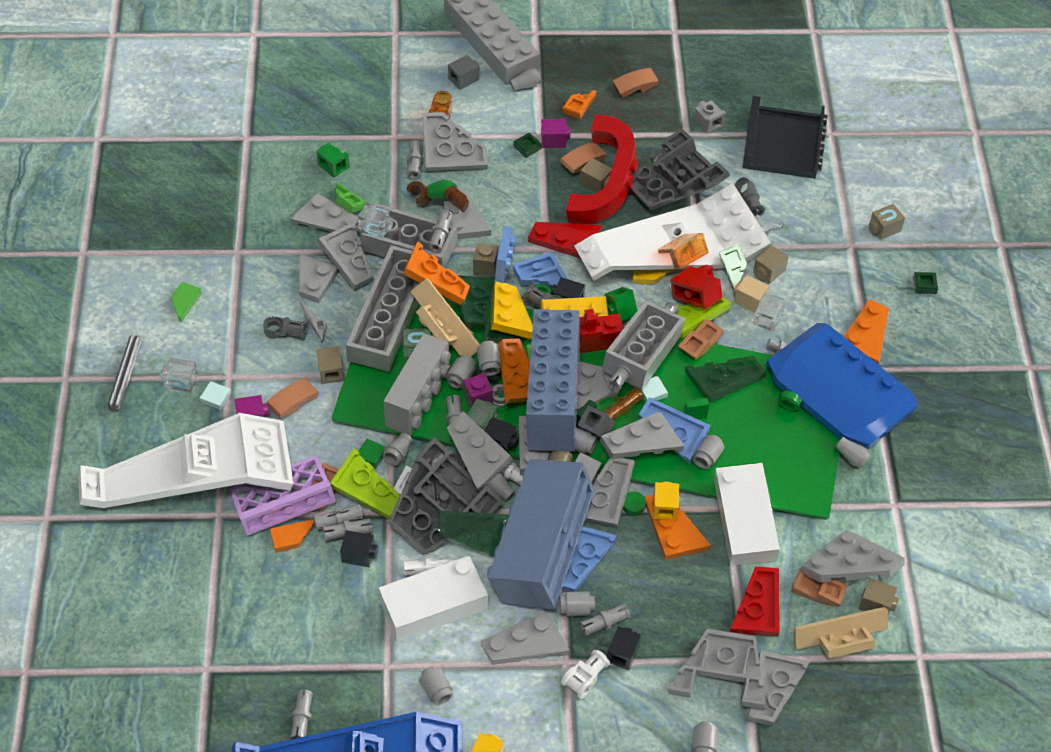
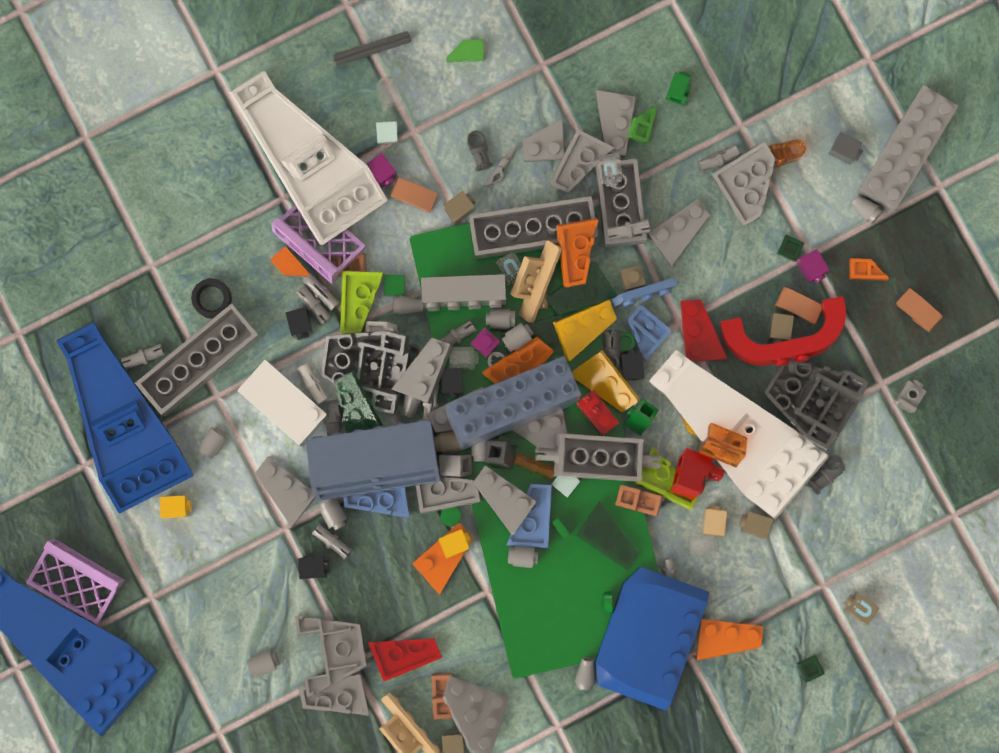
camera: 65 degrees right, 30 degrees up
(278, 603) = (195, 298): none -> black tyre
(339, 655) = (197, 360): none -> light grey brick
(441, 189) = (686, 204): reddish brown piece -> none
(479, 560) = (335, 415): none -> dark grey connector
(584, 675) = (275, 547): white connector -> none
(734, 263) = (738, 494): tile -> none
(746, 514) = (476, 612): white brick -> none
(784, 141) = (918, 477): black panel -> none

